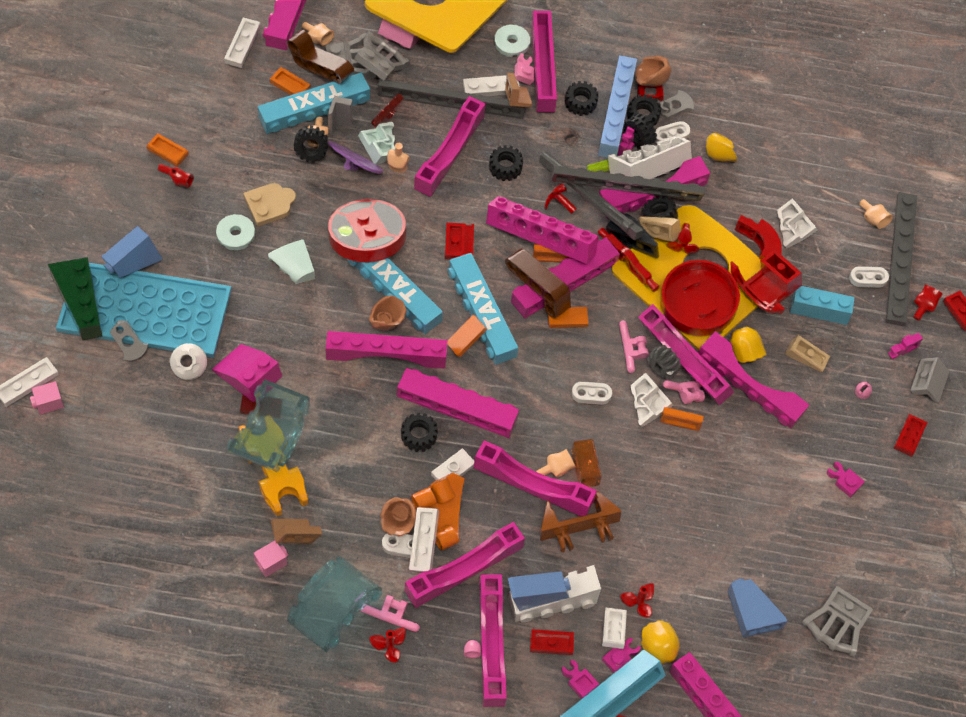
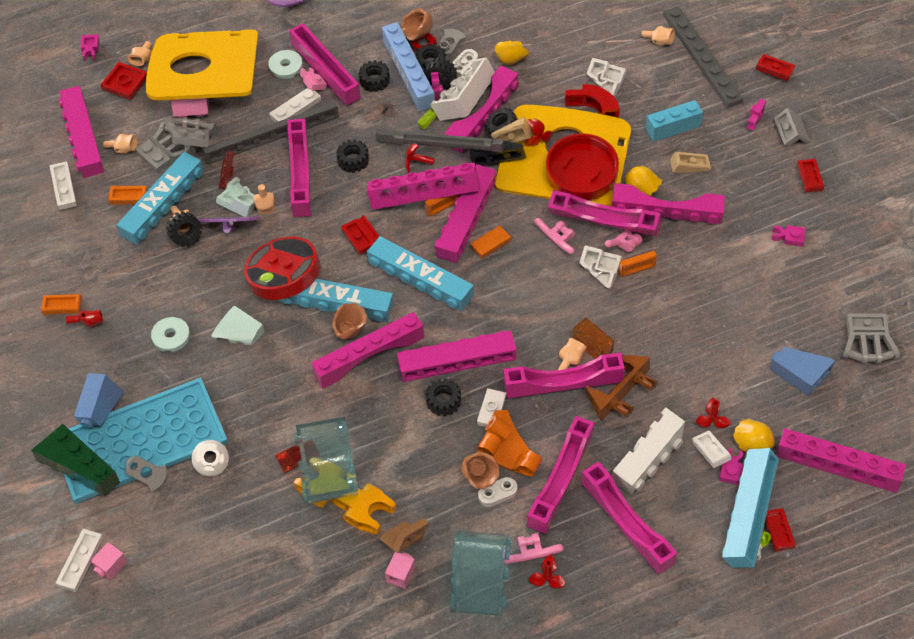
camera: 25 degrees left, 5 degrees down
(247, 369) = (267, 434): dark pink slope -> none
(269, 203) = (181, 295): tan plate -> none
(318, 60) = (142, 162): reddish brown beam -> none
(340, 113) = (191, 190): light grey panel -> none
(424, 539) = (515, 474): white plate -> none
(466, 335) = (425, 300): orange tile -> none
(472, 649) = (616, 536): bright pink hinge -> none
(516, 95) = (321, 97): medium nougat panel -> none
(538, 589) = (639, 452): medium blue slope -> none
(542, 281) = (453, 222): reddish brown beam -> none
(552, 642) = (672, 490): red plate -> none
(580, 682) = (719, 505): dark pink plate -> none
(591, 392) = (553, 286): white plate -> none
(626, 183) = (463, 114): dark grey plate -> none
(634, 265) = (513, 172): red piece -> none
(664, 362) = (592, 229): dark grey gear -> none
(770, 284) = (628, 124): red piece -> none
(866, 393) = (747, 167): bright pink hinge -> none
(868, 276) = (690, 82): white plate -> none
(926, 301) = (745, 74): red piece -> none

